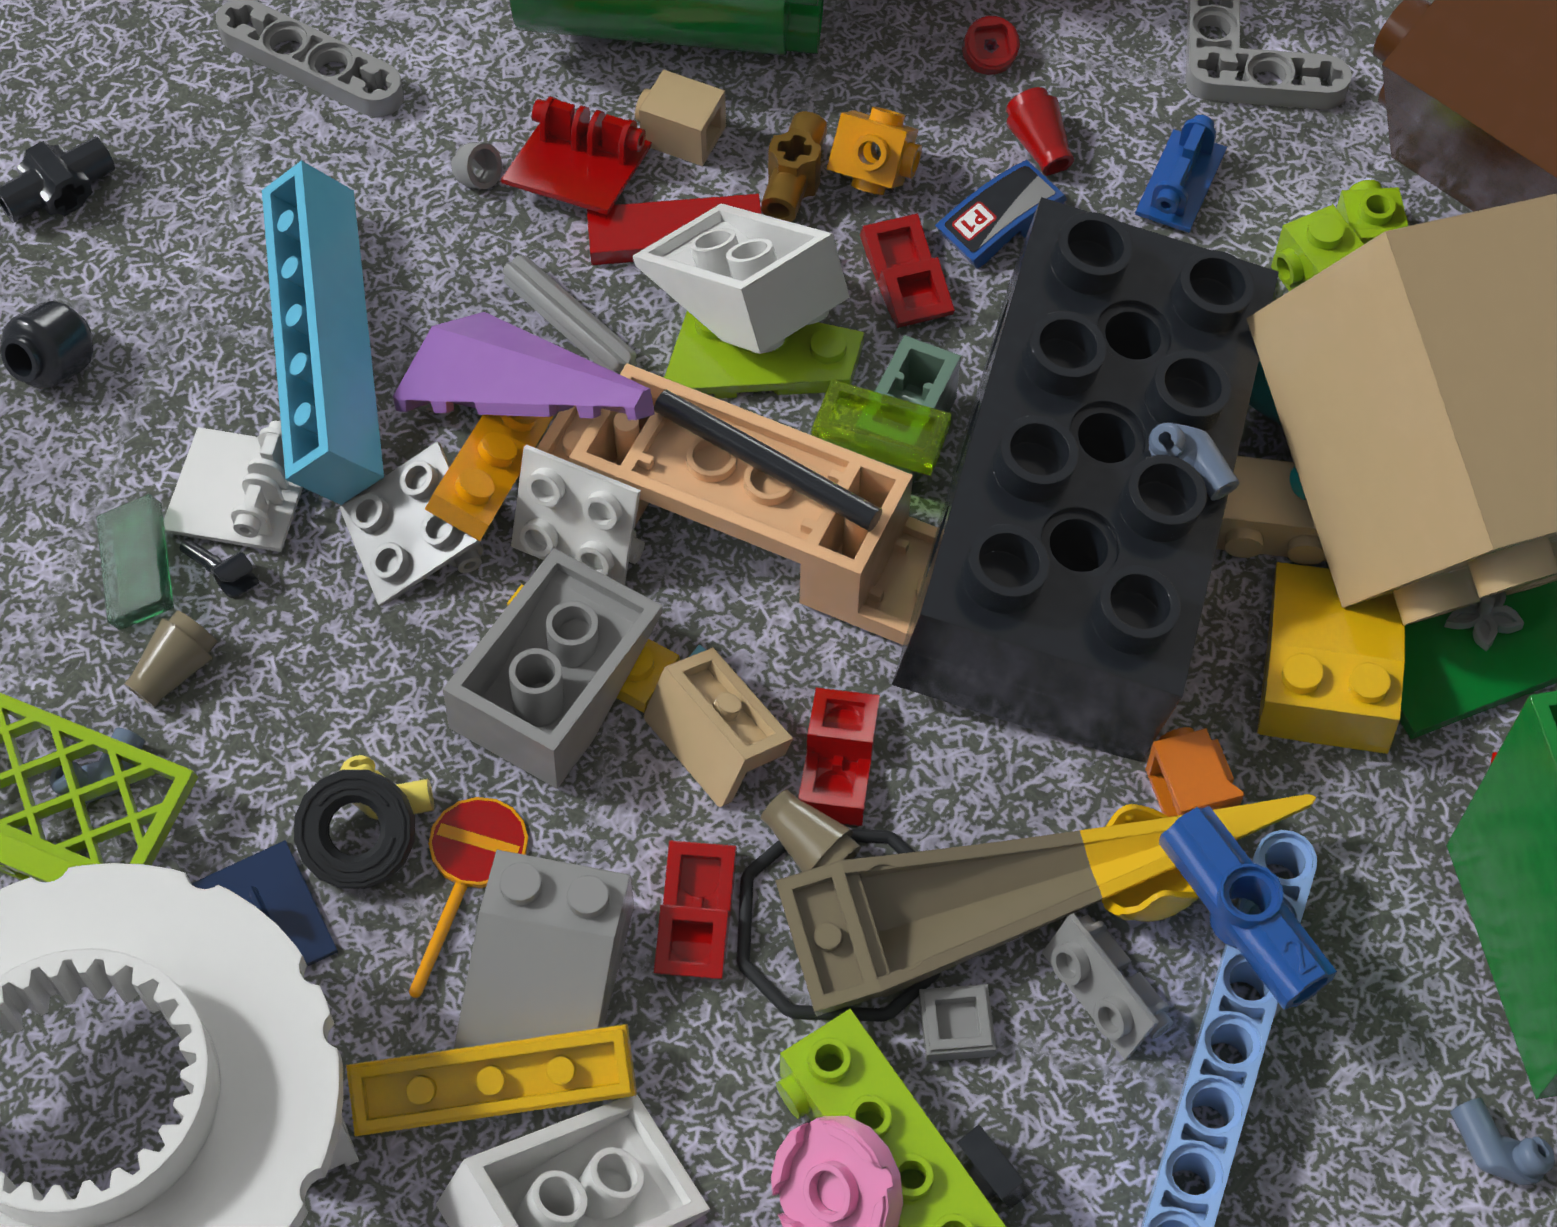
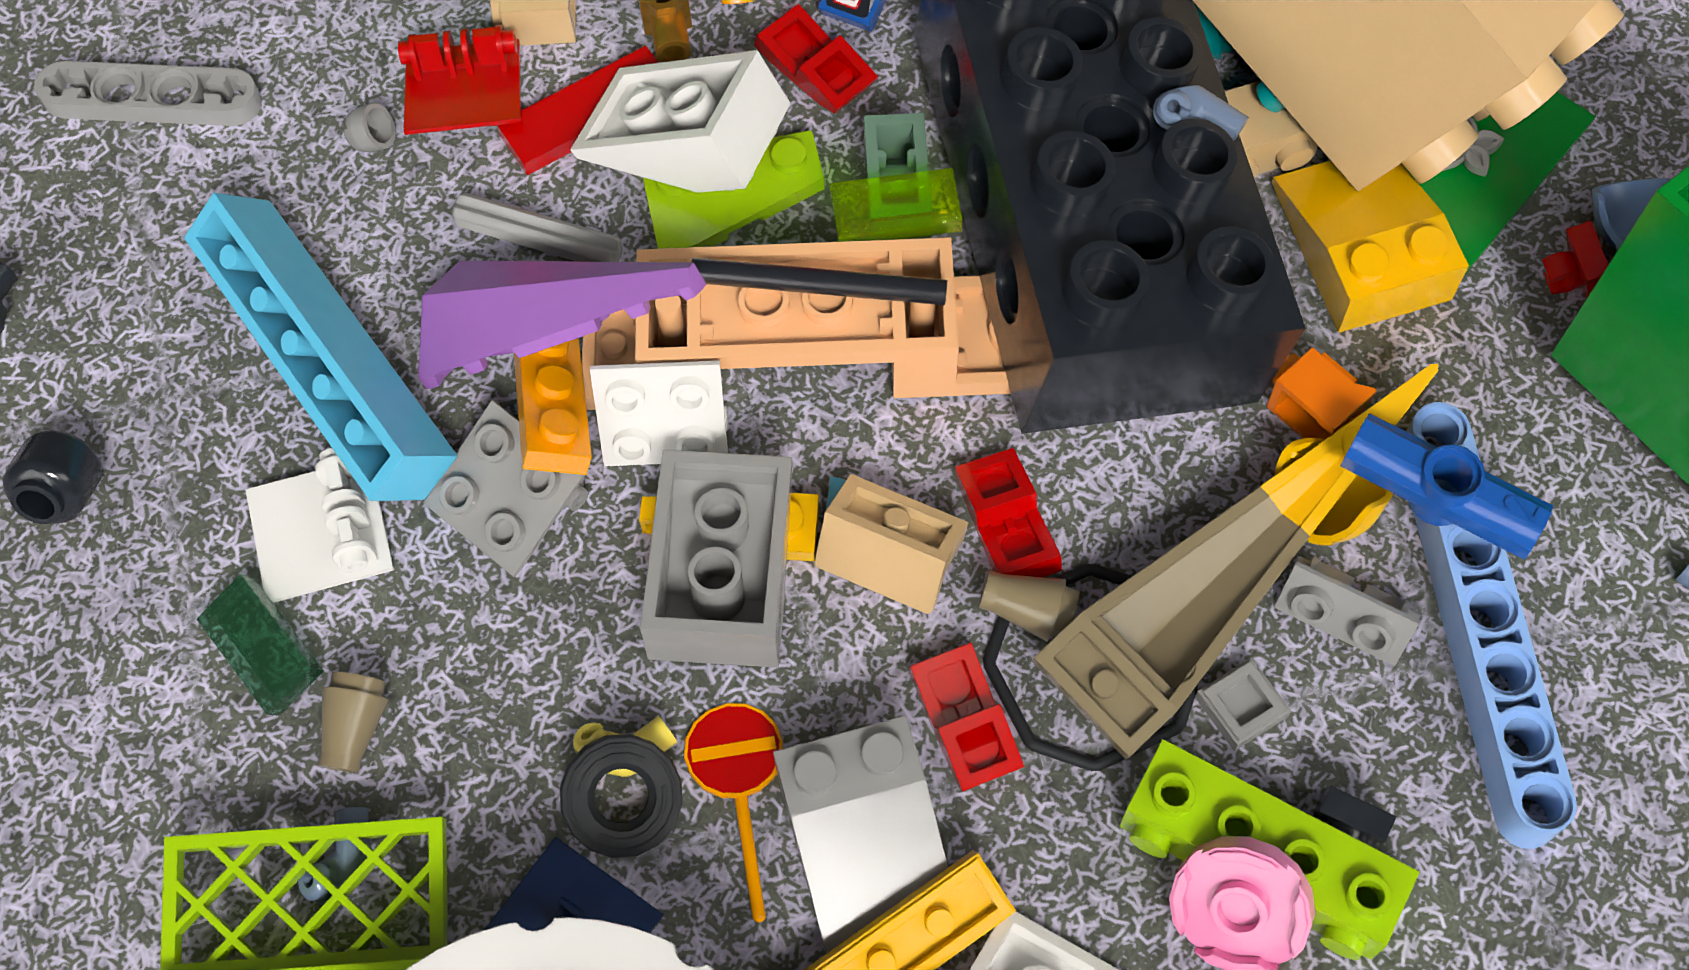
camera: 25 degrees left, 5 degrees up
(232, 575) = (360, 614): black hand -> none

